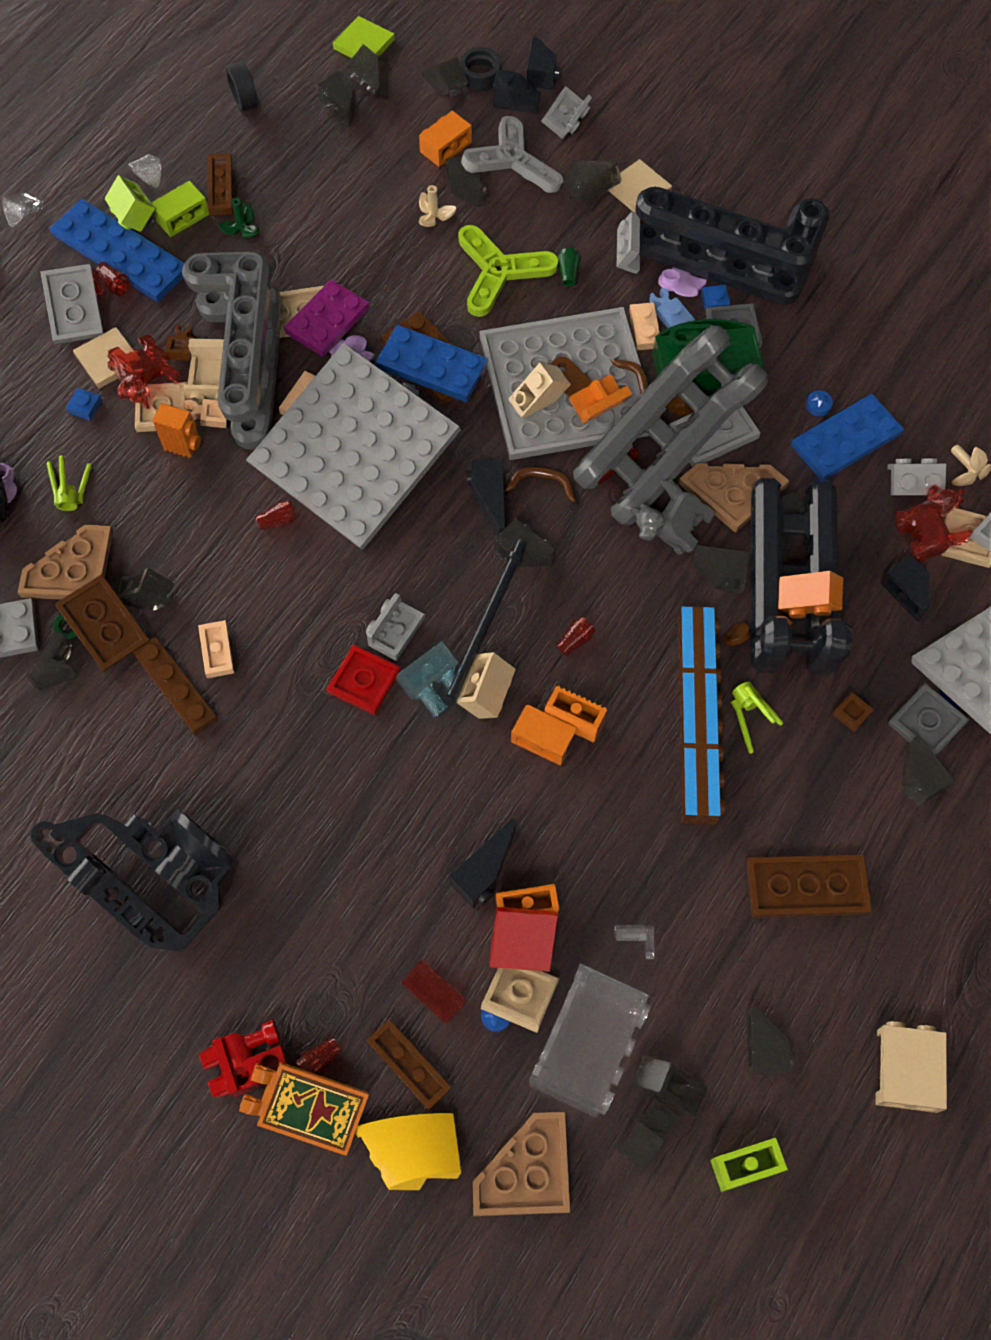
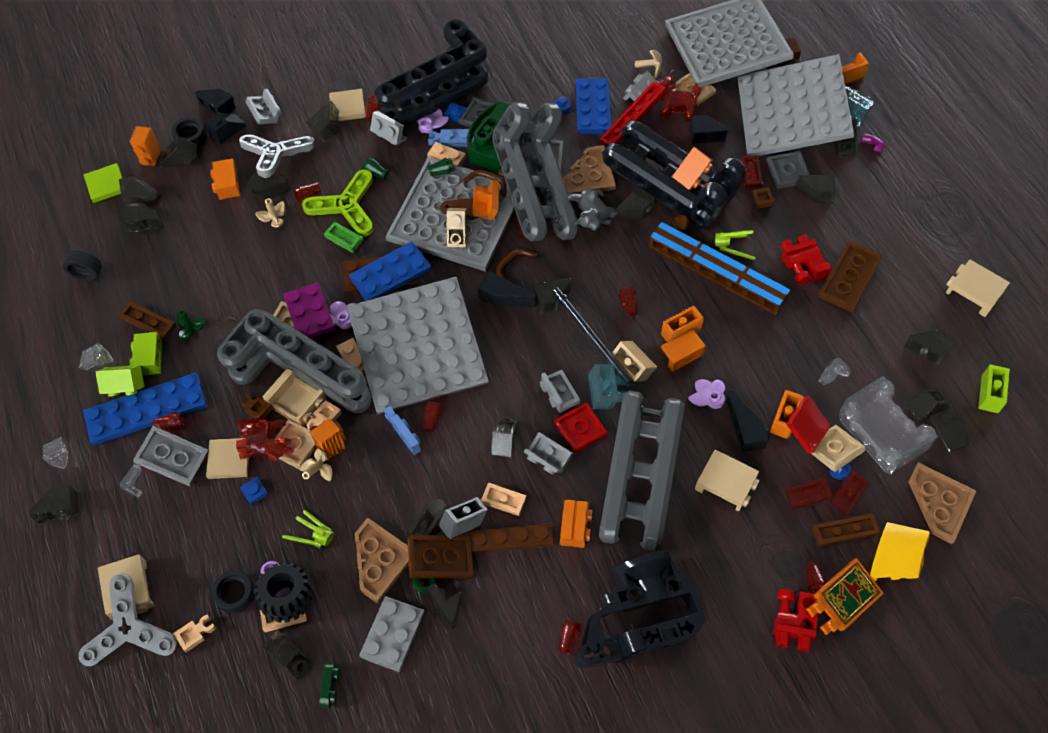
camera: 55 degrees left, 5 degrees down
(25, 287) = (129, 479): none -> clear tile
(85, 807) = (568, 636): none -> clear red cone
(141, 437) = (311, 466): none -> tan plant
(159, 616) = (462, 517): none -> dark grey brick
(228, 741) = (575, 523): none -> orange brick
(240, 494) = (402, 428): none -> medium blue plate
(293, 603) = (503, 437): none -> clear smoke slope
(300, 663) = (548, 453): none -> light grey bracket
(336, 793) = (659, 473): none -> dark grey beam
(389, 883) = (728, 479): none -> tan panel
(427, 40) = (145, 145): none -> orange brick
(451, 293) = (343, 237): none -> bright green plate
(465, 1042) = (849, 492): none -> clear red plate
(485, 221) = (306, 191): none -> clear red cone
(504, 796) = (707, 392): none -> lavender plate
(615, 328) = (441, 167): none -> dark green cone
(795, 807) = (805, 254): none -> red hips
(870, 487) = (635, 112): none -> red plate
(886, 676) = (753, 172): none -> clear red plate

